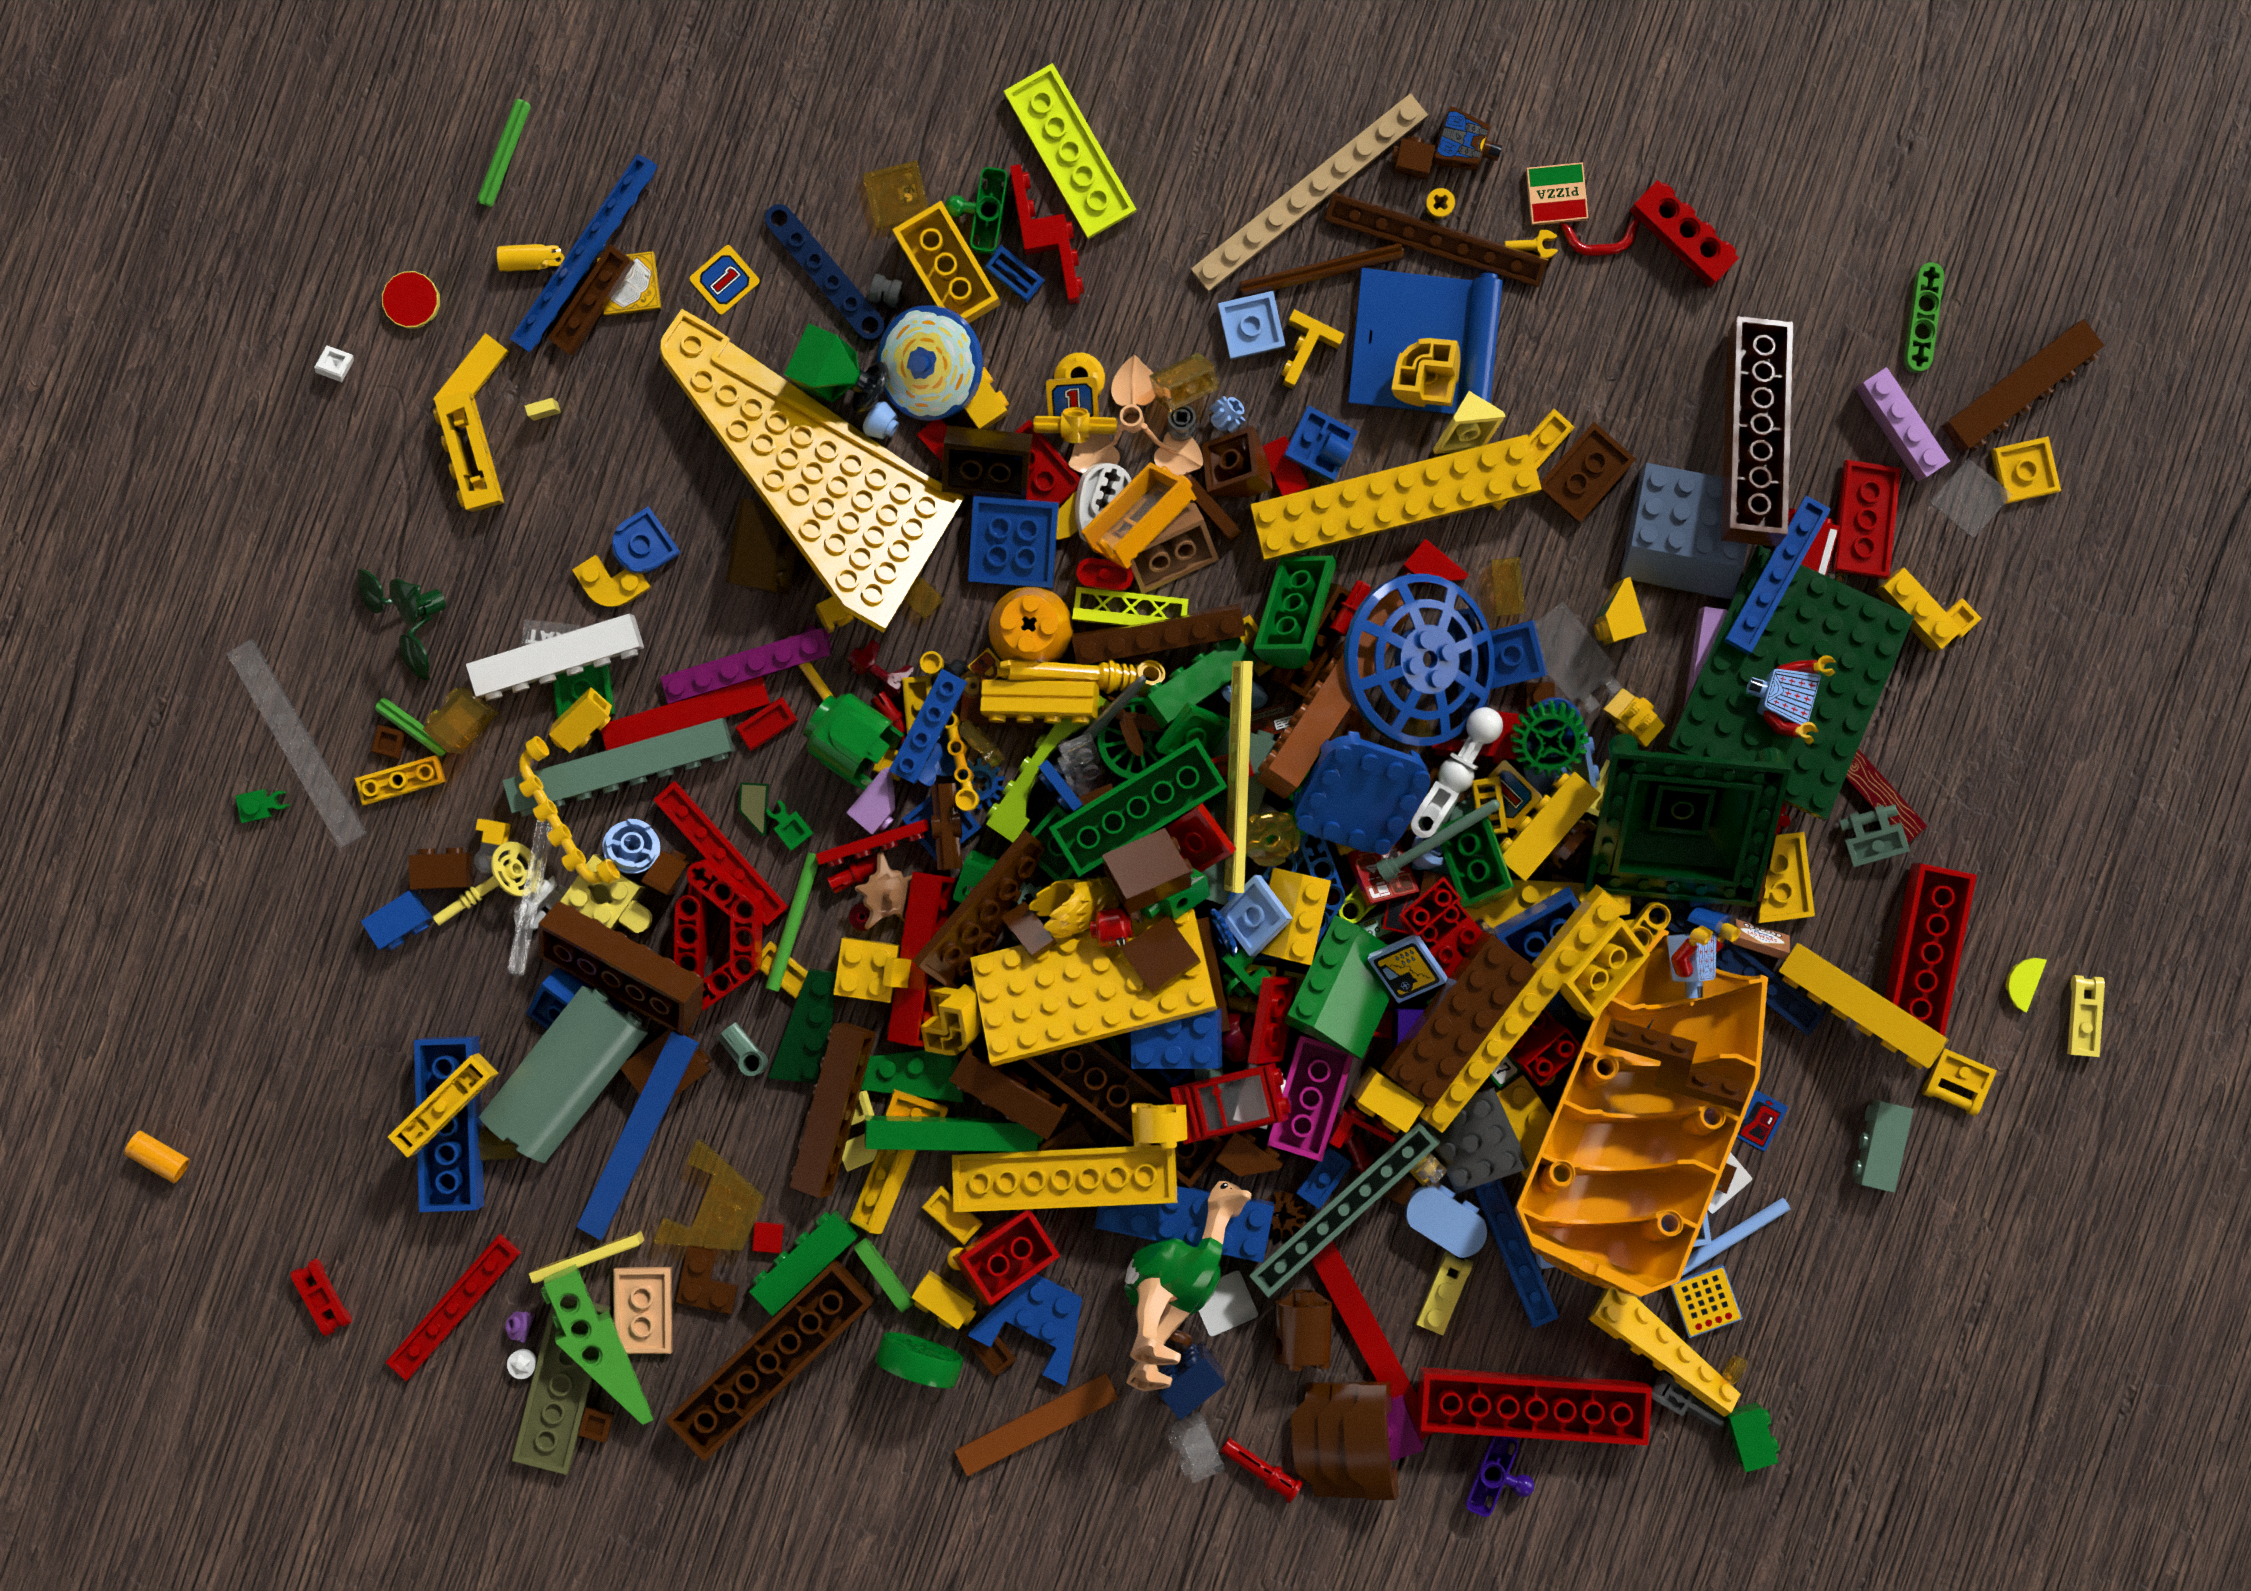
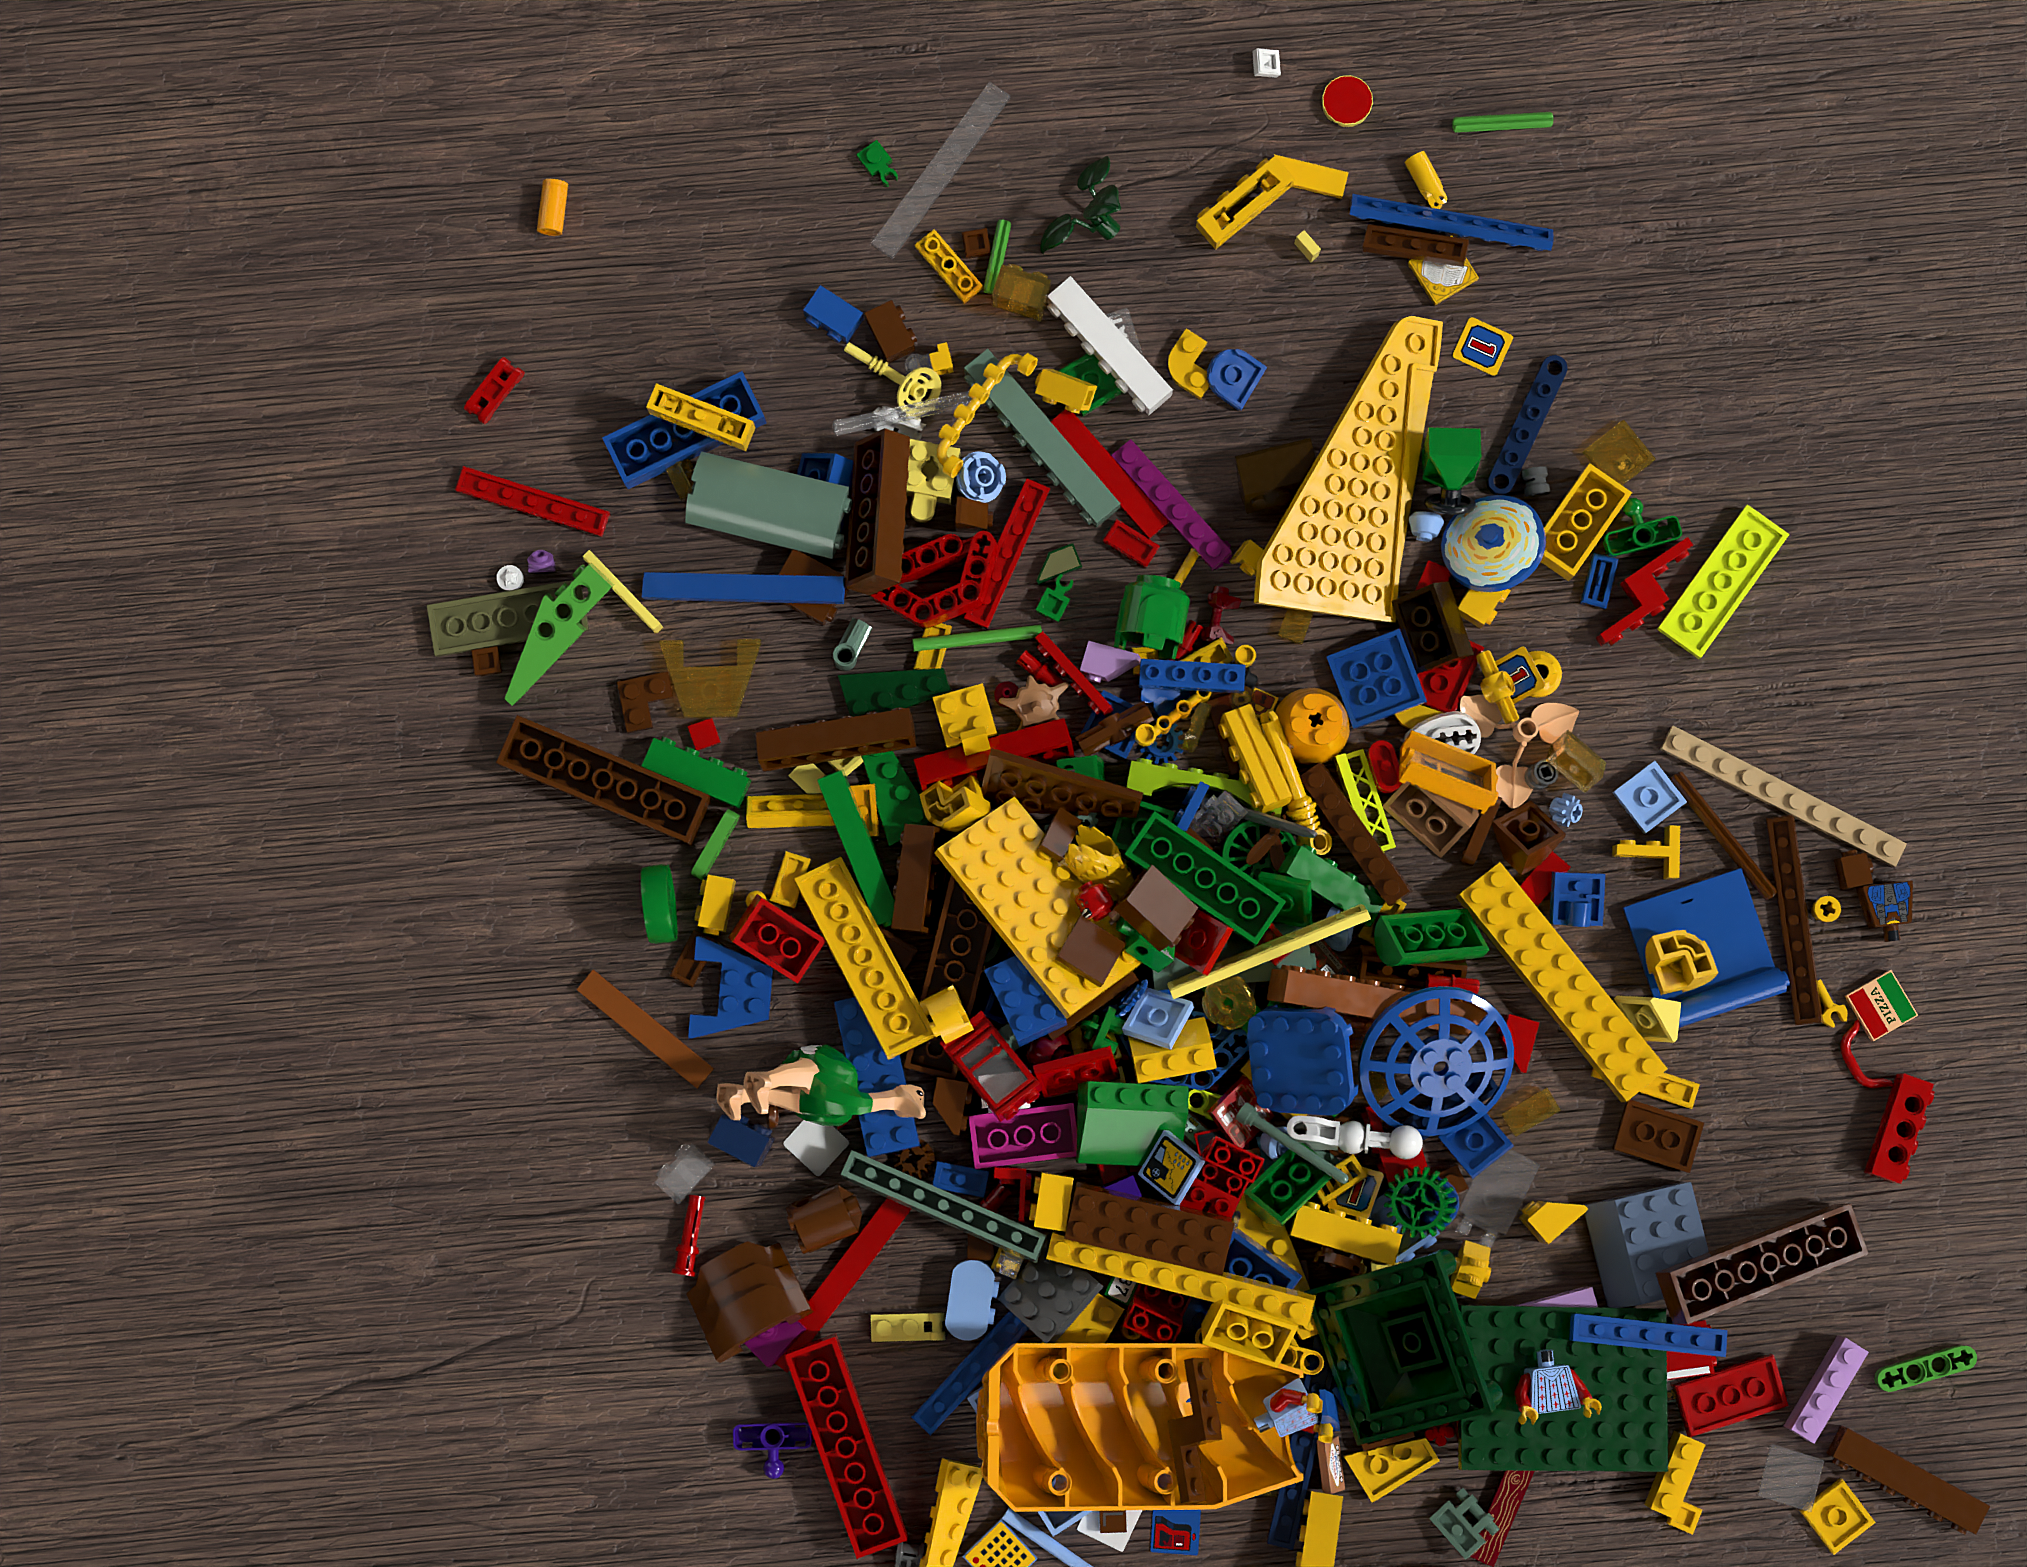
camera: 65 degrees right, 5 degrees down
(644, 1309) = (599, 658): light nougat tile -> none

